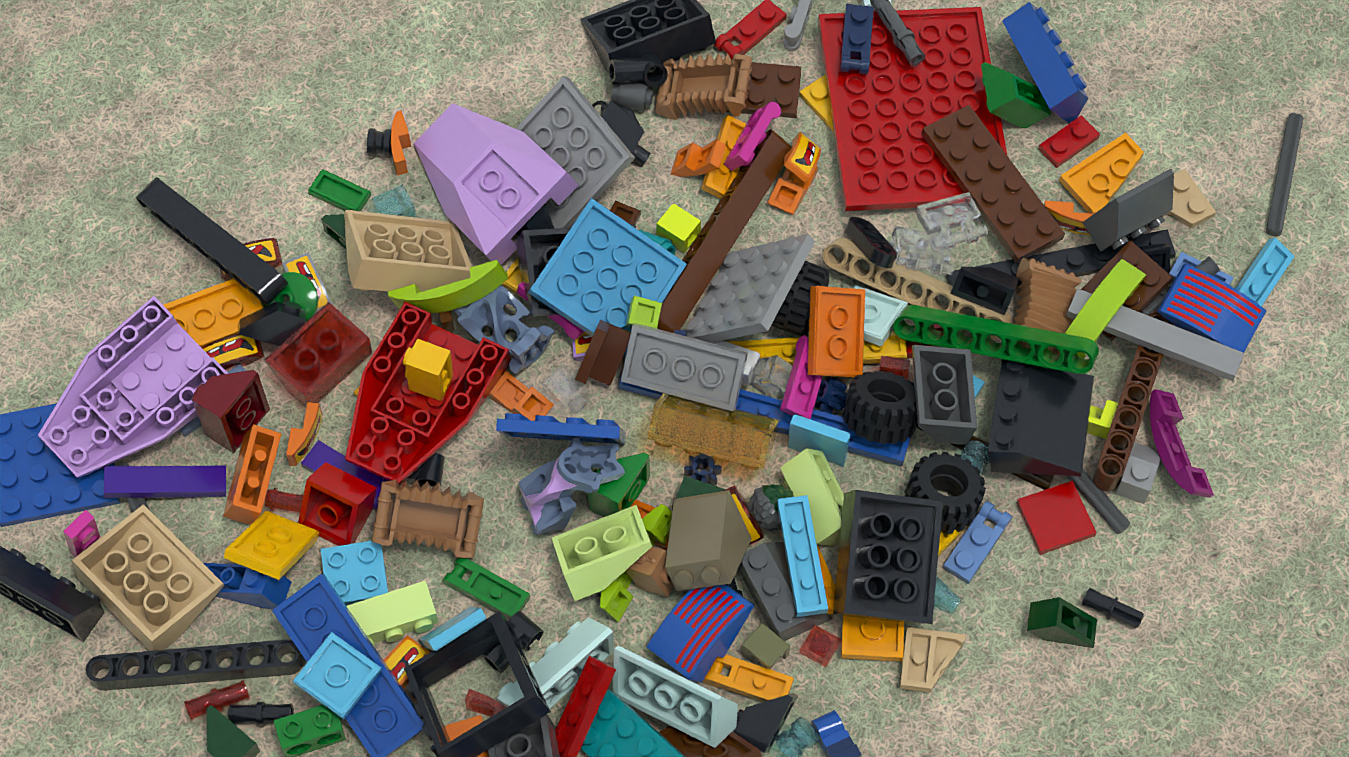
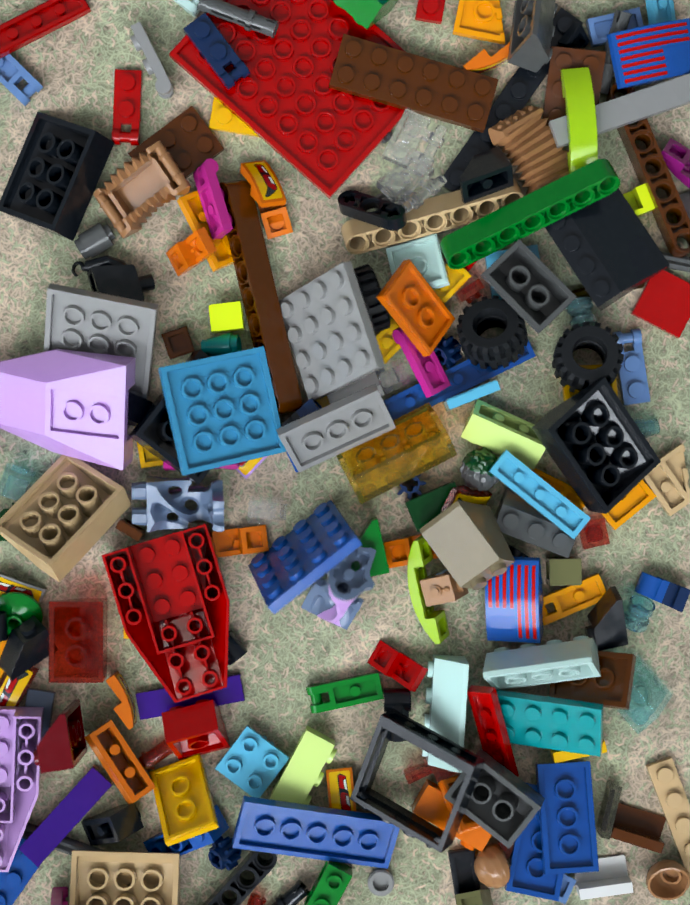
camera: 45 degrees left, 25 degrees up
(195, 521) = (113, 824): none -> black slope
(257, 624) = (223, 855): none -> dark blue gear
(337, 675) = (318, 851): medium azure tile -> none
(428, 369) = (169, 594): yellow brick -> none
(428, 516) = (267, 688): medium nougat piece -> none
(453, 628) = (355, 745): medium azure tile -> none
(483, 280) = (141, 497): lime slope -> none
(550, 604) = (397, 666): none -> red slope
(601, 551) = (403, 608): yellowish green slope -> none
(604, 353) = (270, 467): reddish brown panel -> none
(636, 70) = (88, 215): black piece -> none
(643, 312) = (273, 415): lime plate -> none

